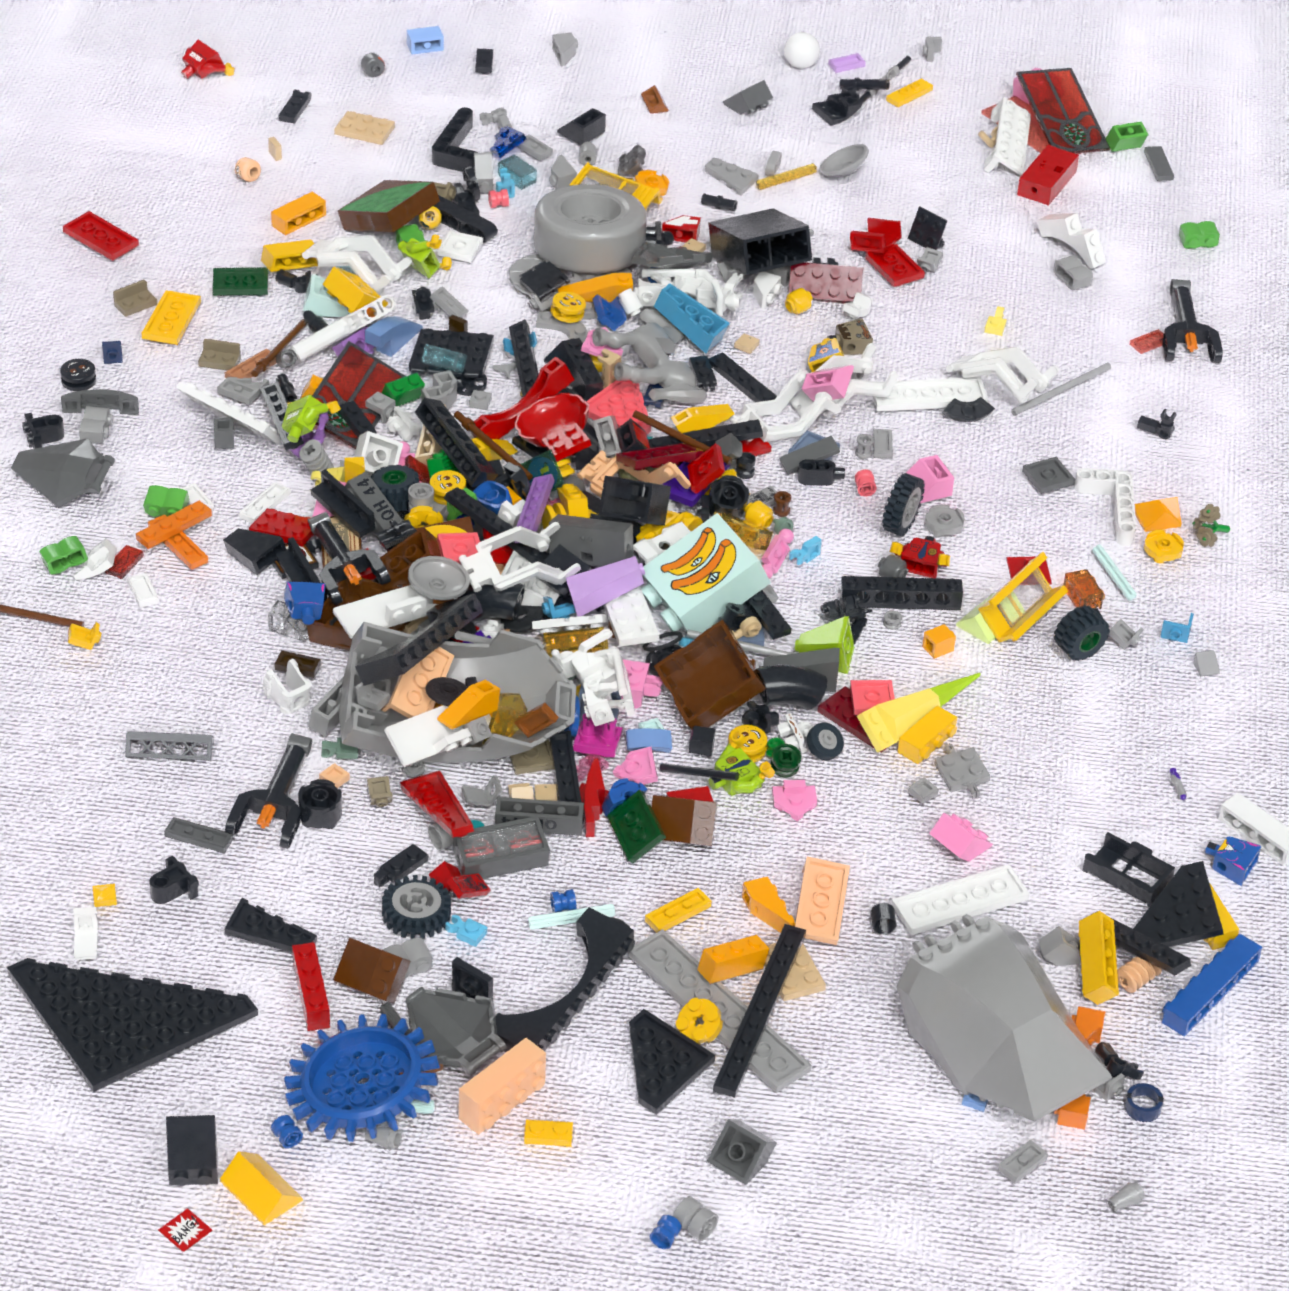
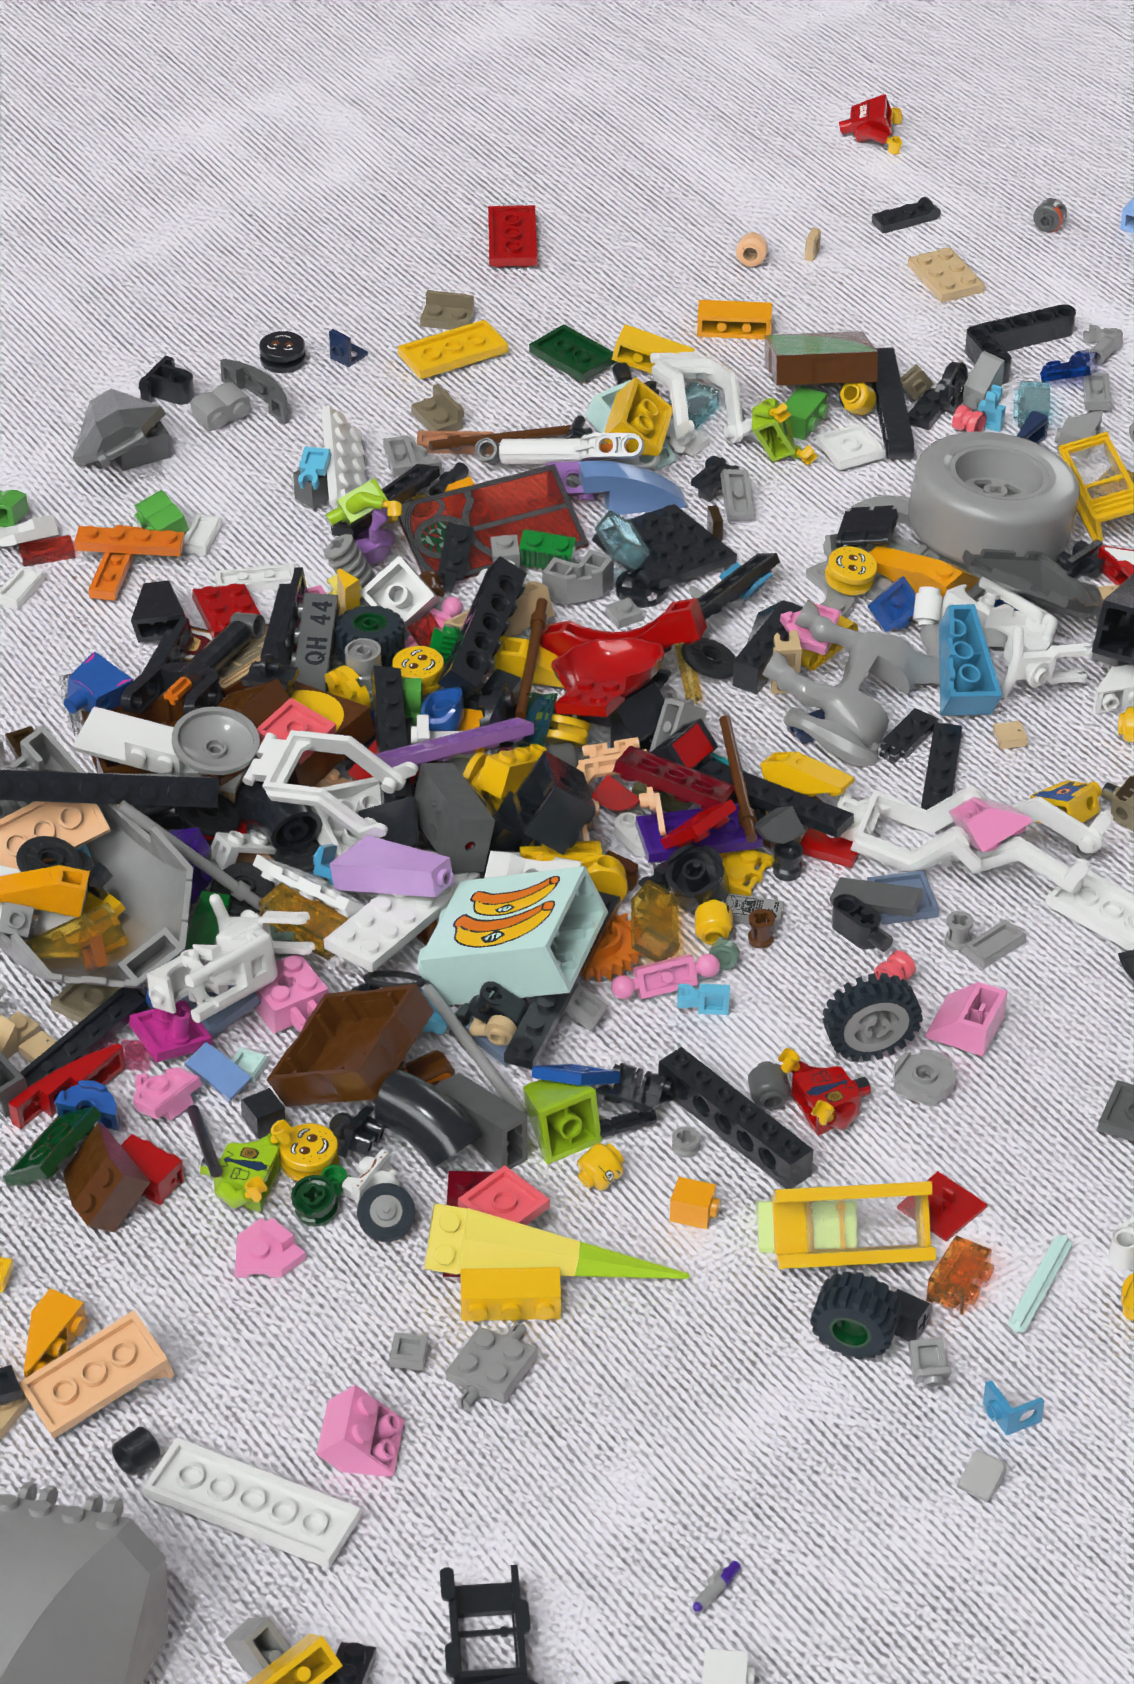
camera: 50 degrees right, 0 degrees up
(226, 417) = (313, 463): none -> medium azure plate
(536, 185) = (1034, 427): none -> dark blue slope
(621, 401) = (752, 705): coral plate -> none
(815, 621) = (576, 1074): none -> blue tile
(879, 654) = (600, 1166): none -> yellow head

